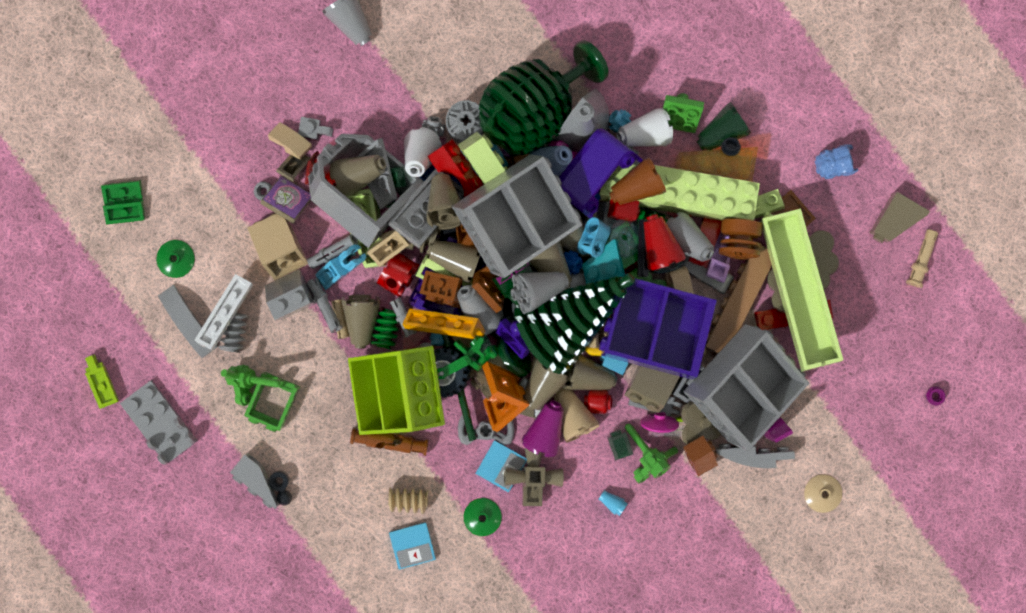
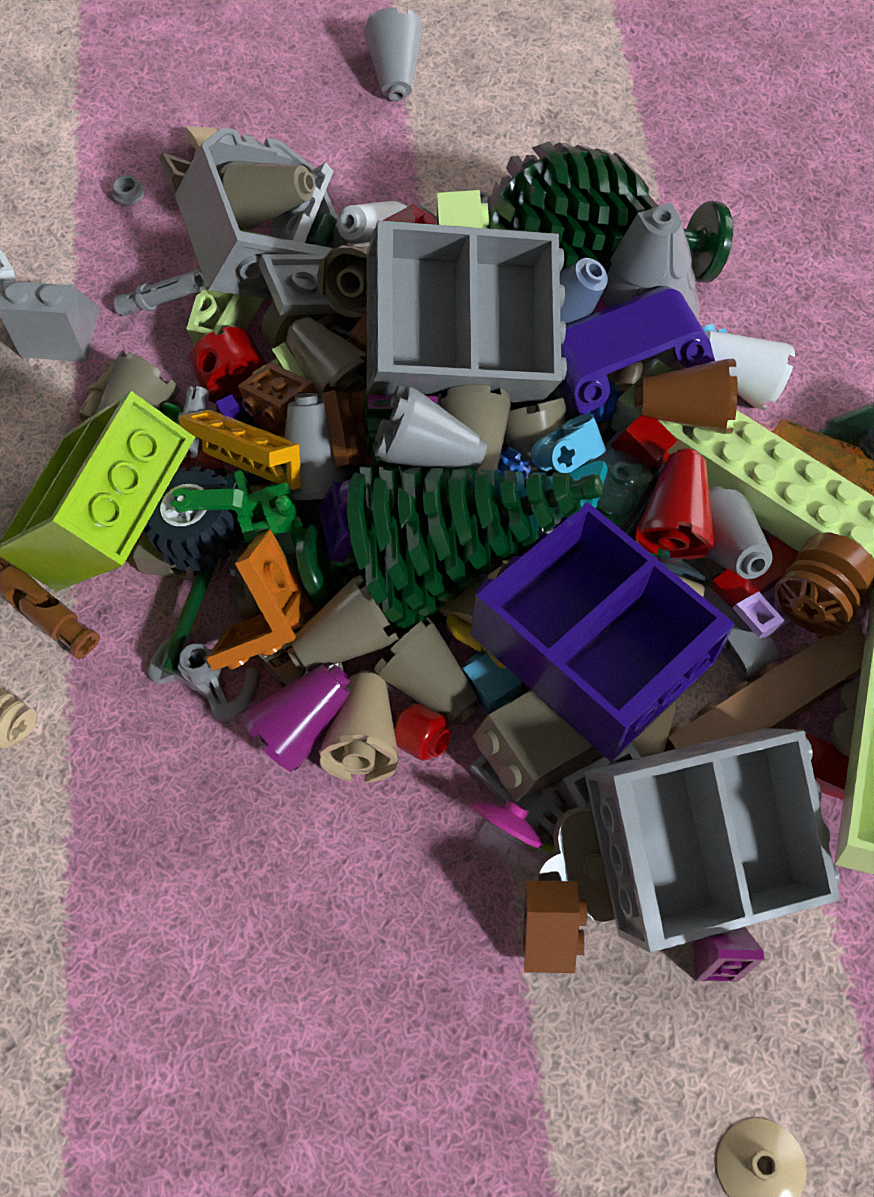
camera: 30 degrees right, 25 degrees down
(277, 246) = (91, 253): tan slope -> none
(286, 199) = (148, 207): tile -> none
(320, 298) = (95, 350): light grey pin -> none
(339, 267) = (155, 313): medium azure plate -> none
(387, 247) = (239, 307): tan slope -> none
(482, 507) = (101, 833): green dish -> none
(496, 460) = (185, 749): medium azure tile -> none
(533, 479) = (221, 794): dark tan brick -> none
(613, 503) = (337, 931): medium azure cone -> none
(619, 444) = (411, 827): clear green brick -> none
(653, 460) = (456, 885): bright green piece -> none
(683, 112) = (835, 368): bright green plate -> none
(762, 459) = (639, 987): light grey slope -> none

